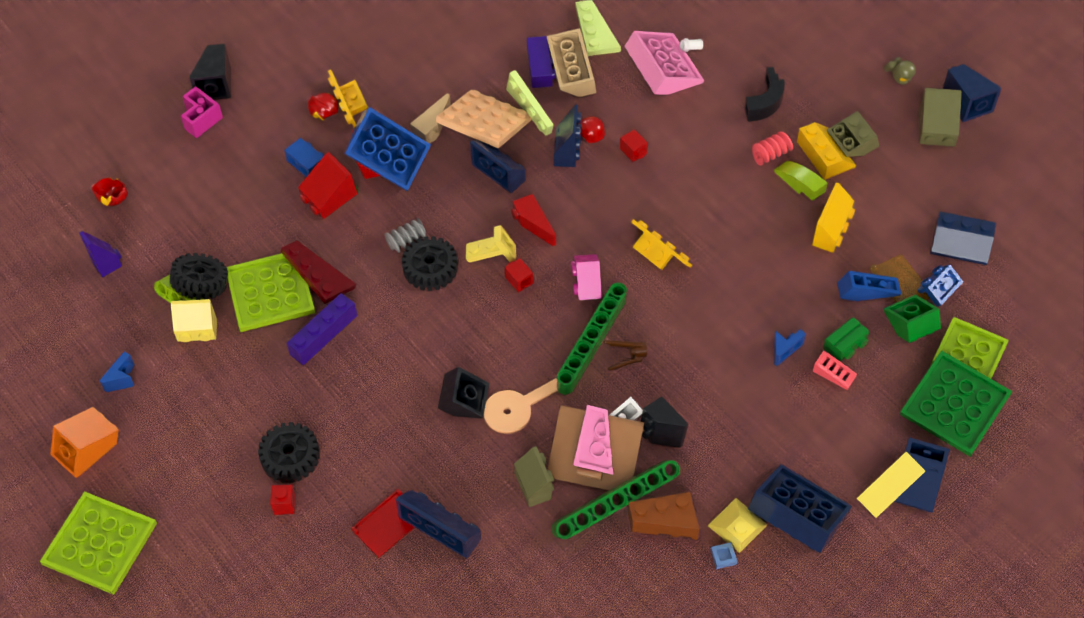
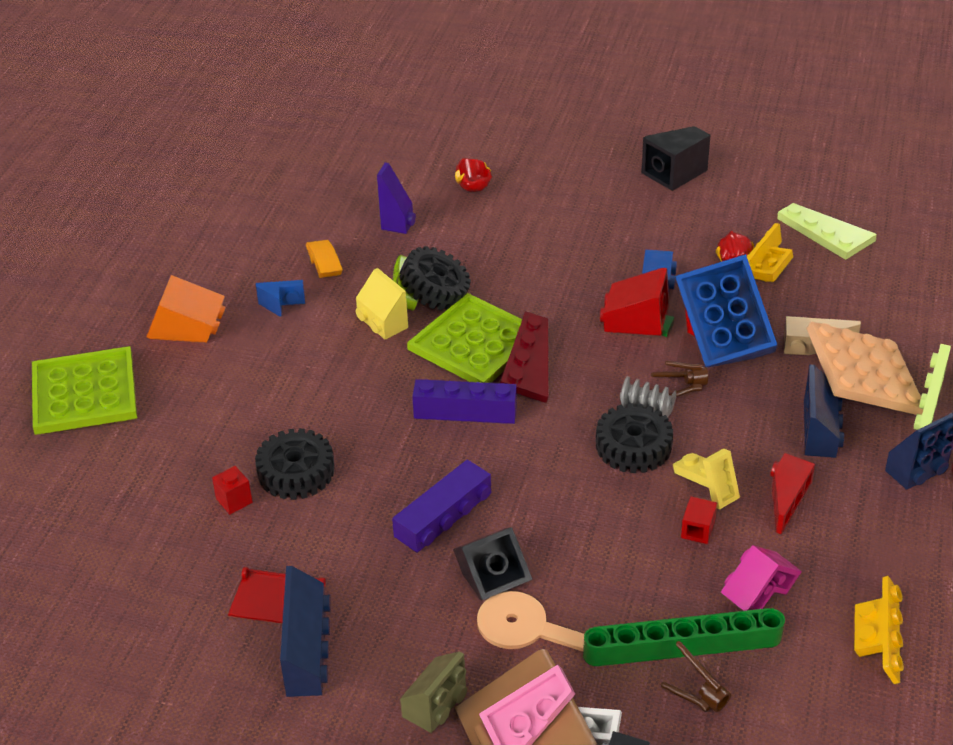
camera: 55 degrees right, 15 degrees down
(104, 325) = (325, 258): none -> light orange slope
(201, 112) = (622, 177): dark pink brick -> none
(350, 50) = (827, 231): none -> yellowish green wing
(396, 393) = (442, 506): none -> dark purple brick
(408, 201) = (694, 374): none -> reddish brown plant

